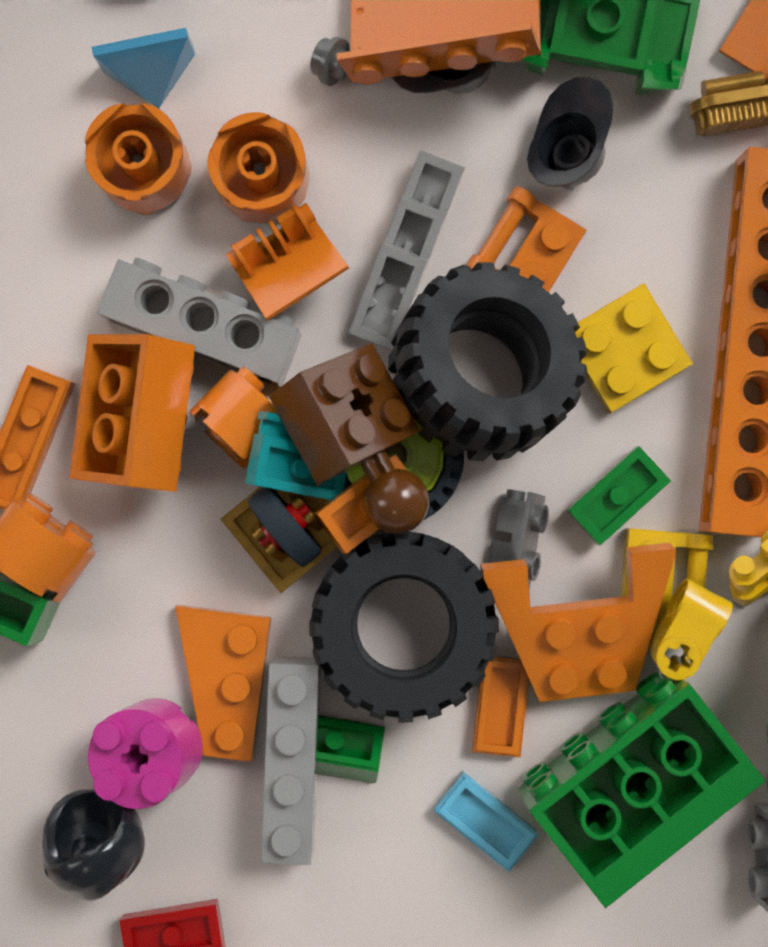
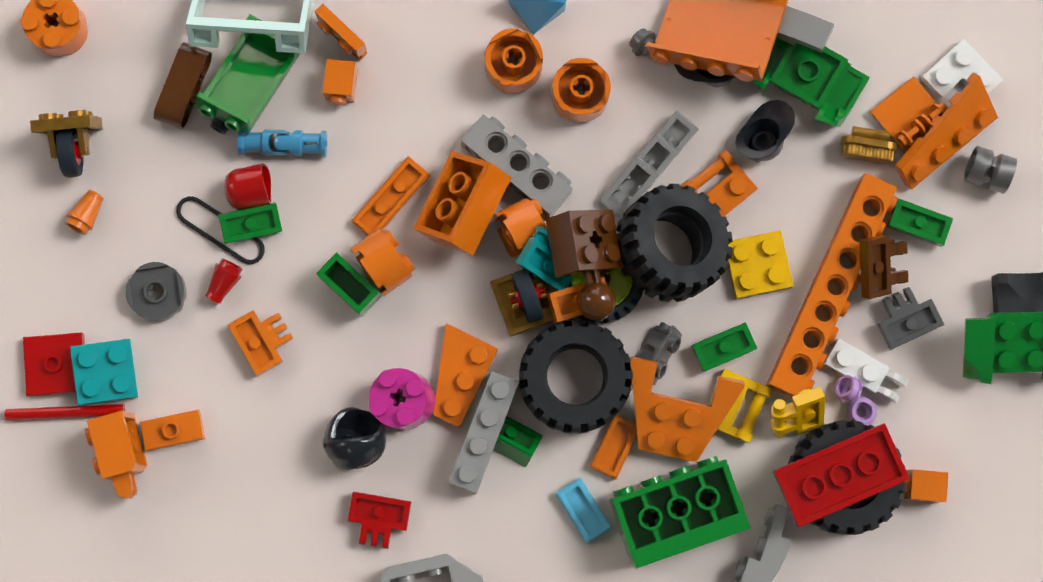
camera: 15 degrees right, 5 degrees down
(287, 262) = (578, 148): orange hinge -> none
(693, 622) = (742, 429): yellow piece -> none

